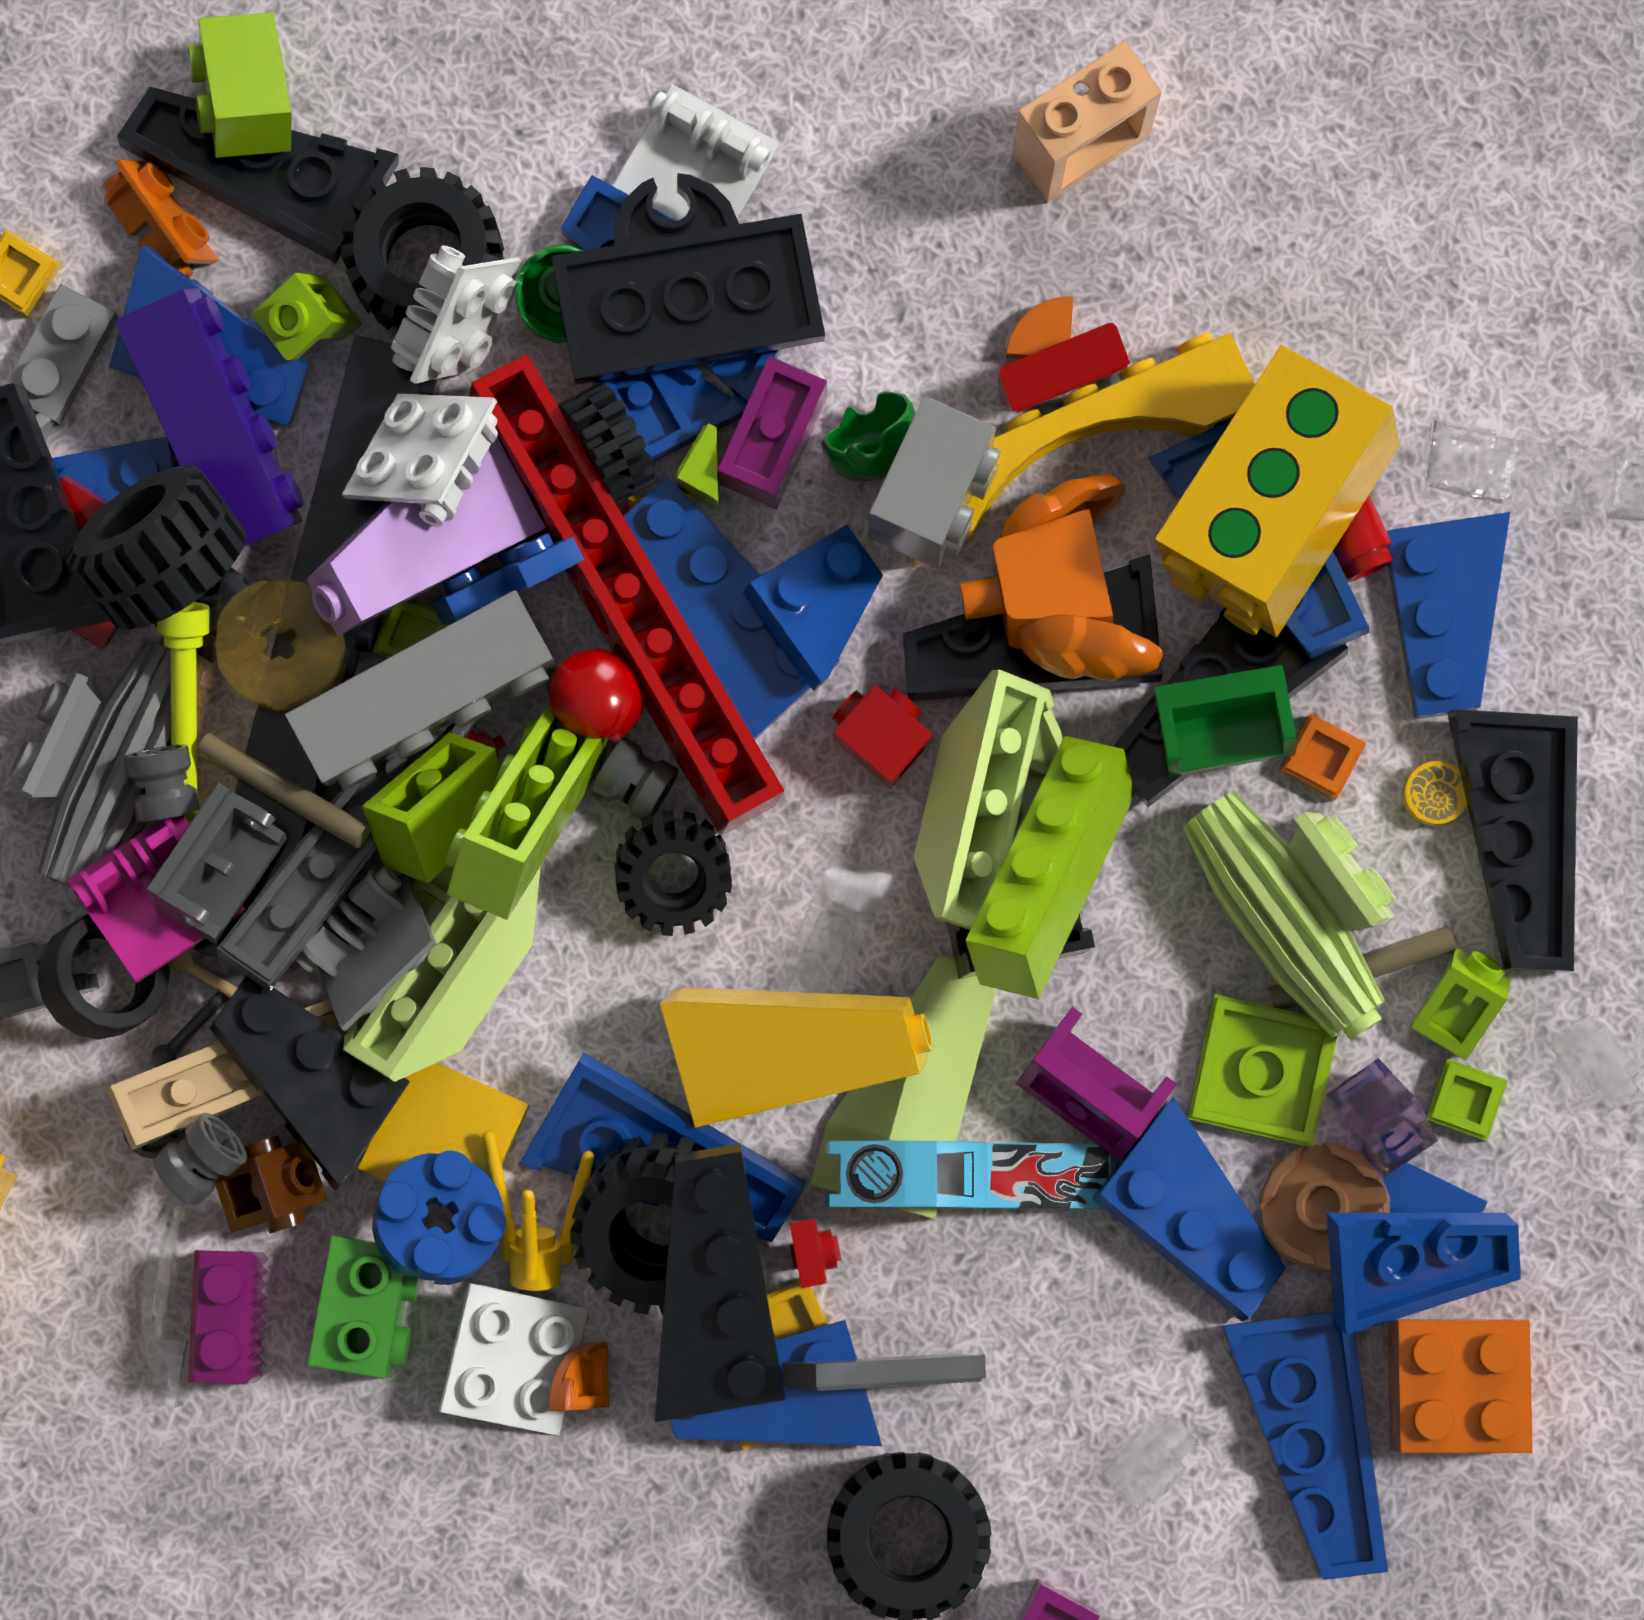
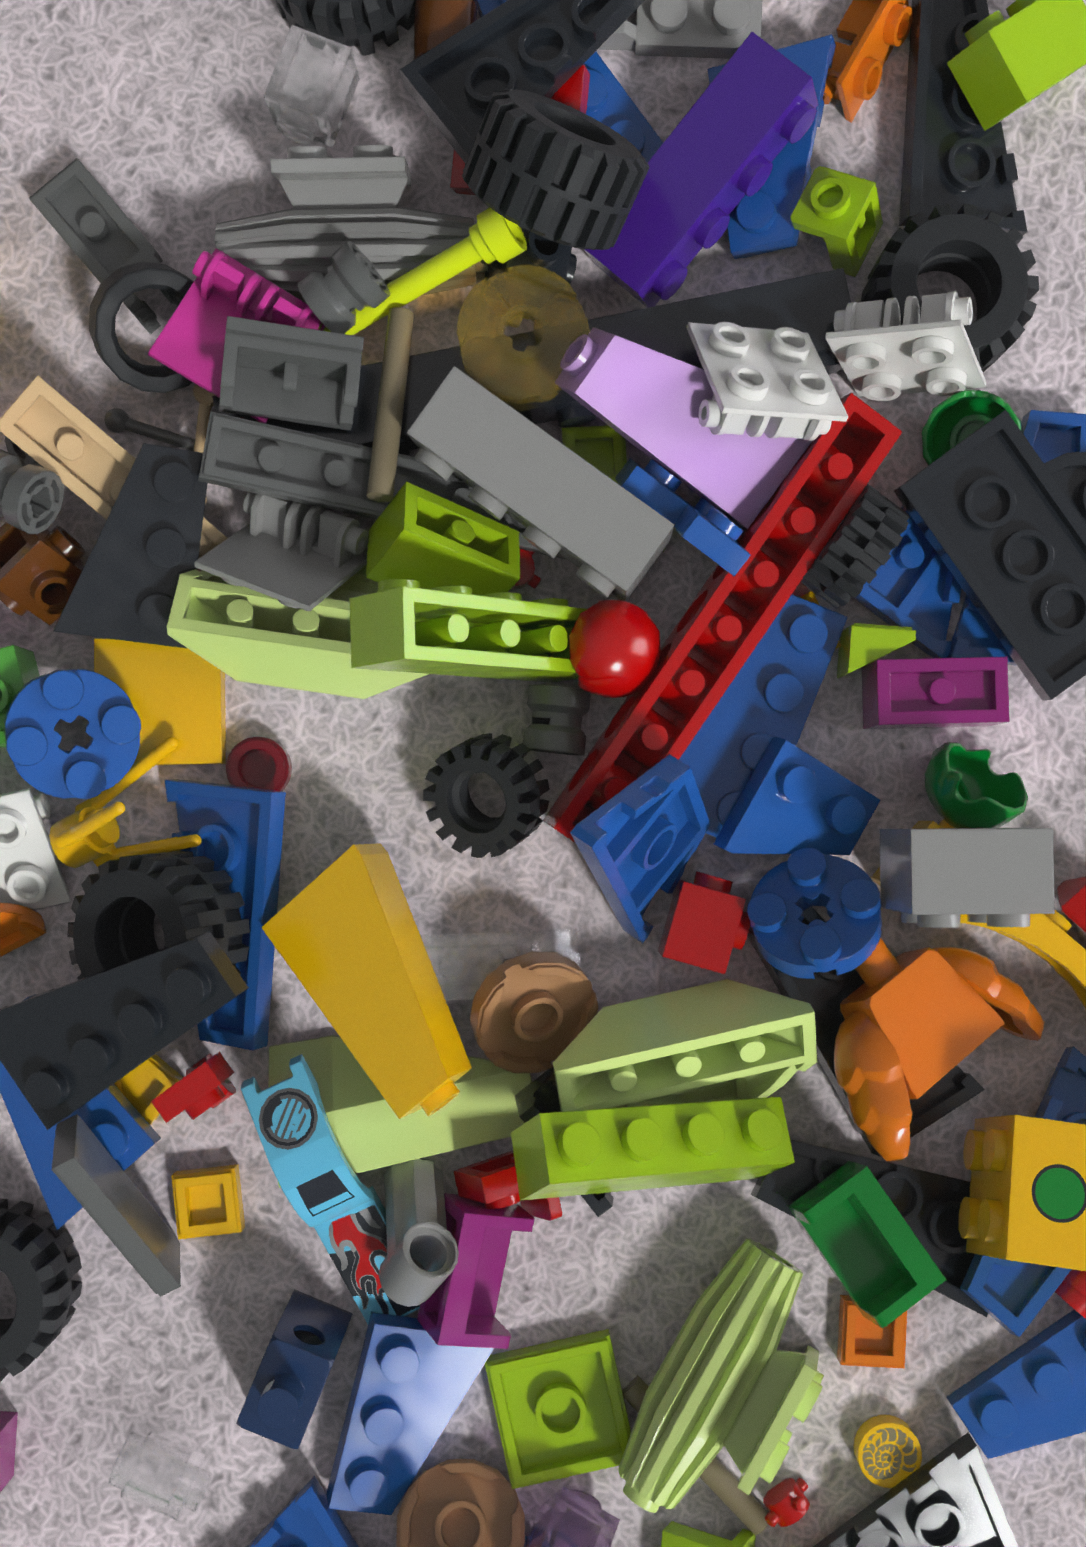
camera: 60 degrees right, 5 degrees up
(544, 1072) = (259, 764): none -> dark red tile
(779, 746) = (643, 840): none -> blue wing
(886, 924) = (531, 1010): none -> medium nougat tile
(887, 623) = (810, 881): none -> blue plate
(925, 1306) = (208, 1201): none -> yellow tile
(1030, 1017) = (496, 1186): none -> red bracket
(1036, 1116) = (416, 1231): none -> light grey piece
(1111, 1289) = (294, 1371): none -> dark blue torso
(1439, 905) = (786, 1502): none -> red piece

